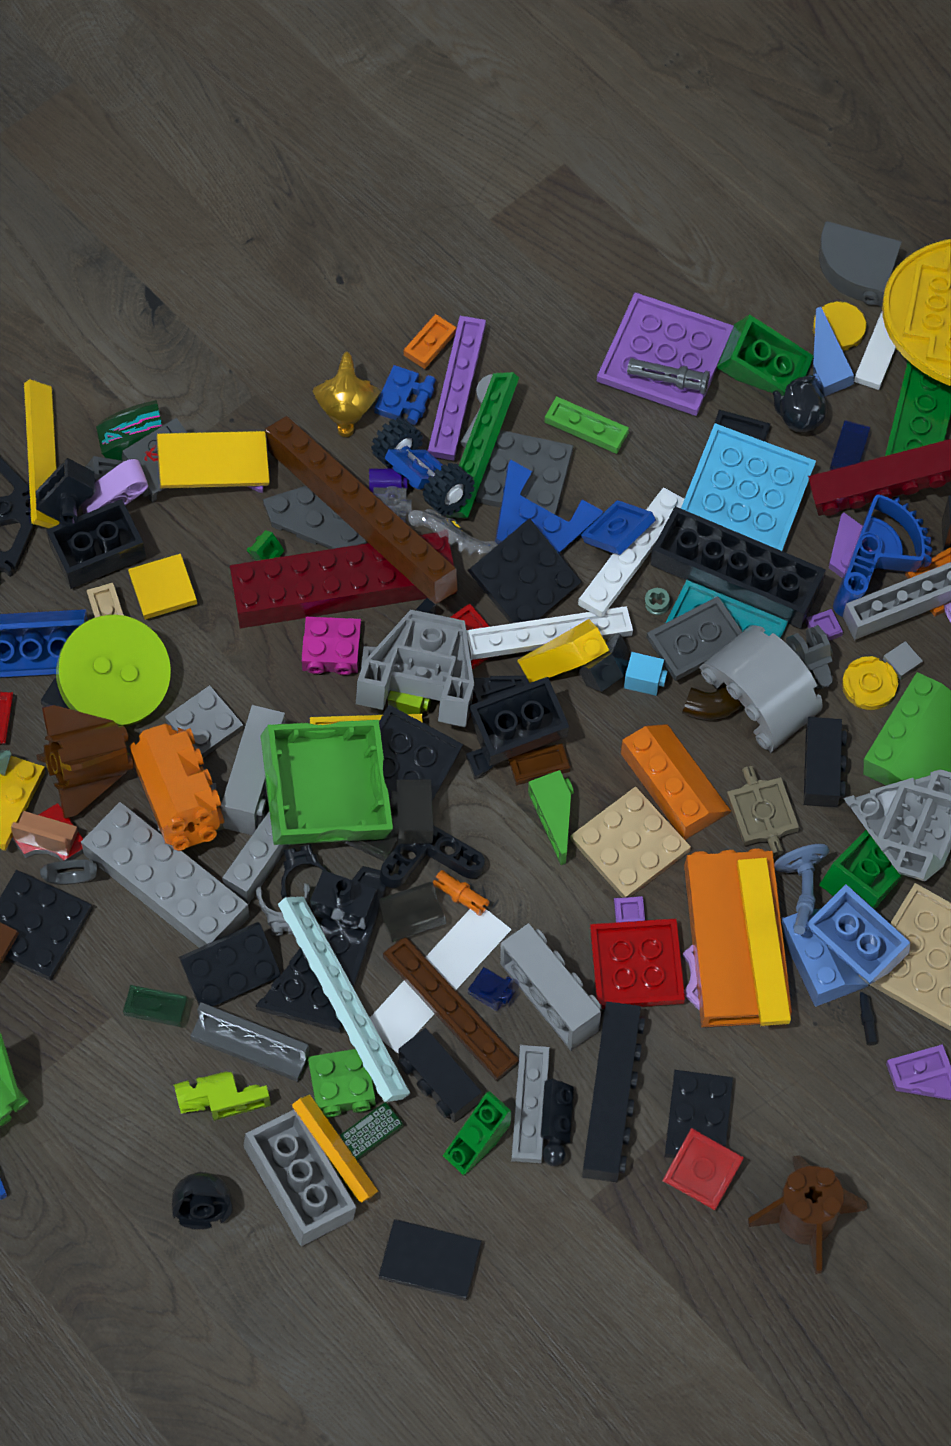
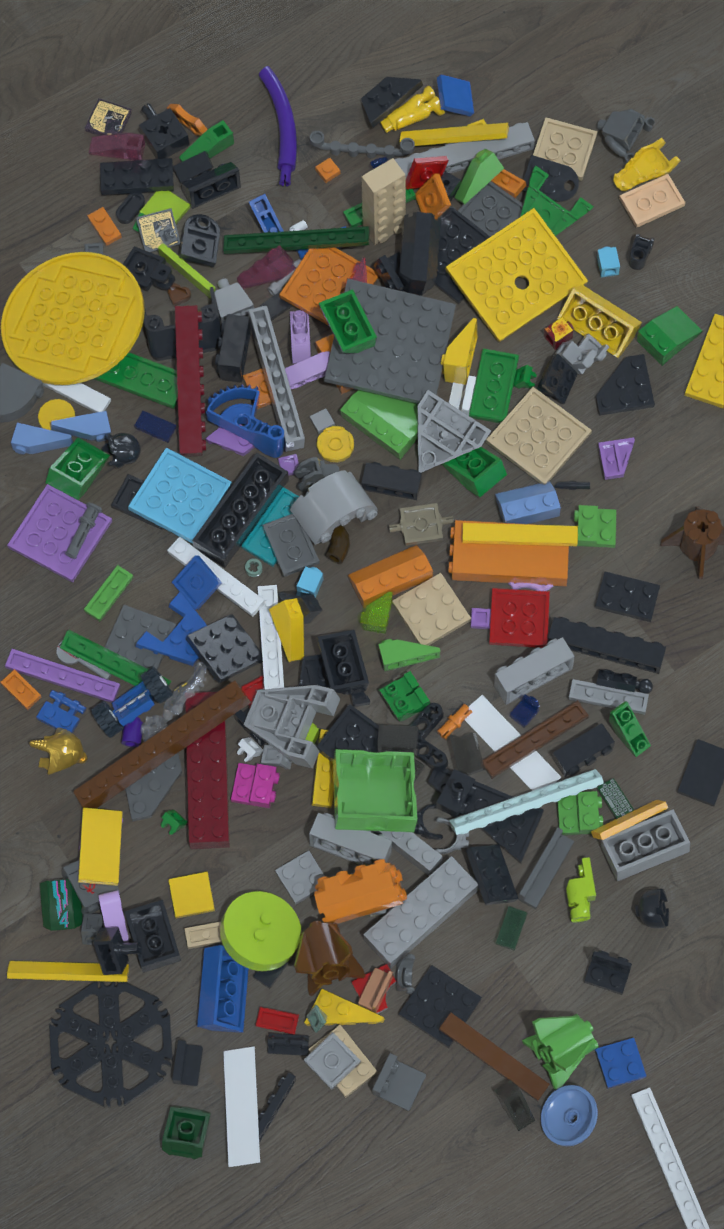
camera: 80 degrees left, 5 degrees up
(97, 1146) = (608, 972): none -> black bracket
(381, 626) = (250, 747): none -> white tile
(487, 819) = (405, 697): none -> green hips
(538, 763) = (369, 659): reddish brown tile -> none
(611, 769) = (377, 614): none -> clear neon green slope
(703, 1169) = (665, 597): red tile -> none
(796, 303) = (35, 439): none -> medium blue slope
(804, 866) = (498, 503): sand blue dish -> none
(804, 1056) = (596, 526): none -> bright green plate
(859, 935) = (525, 475): medium blue slope -> none

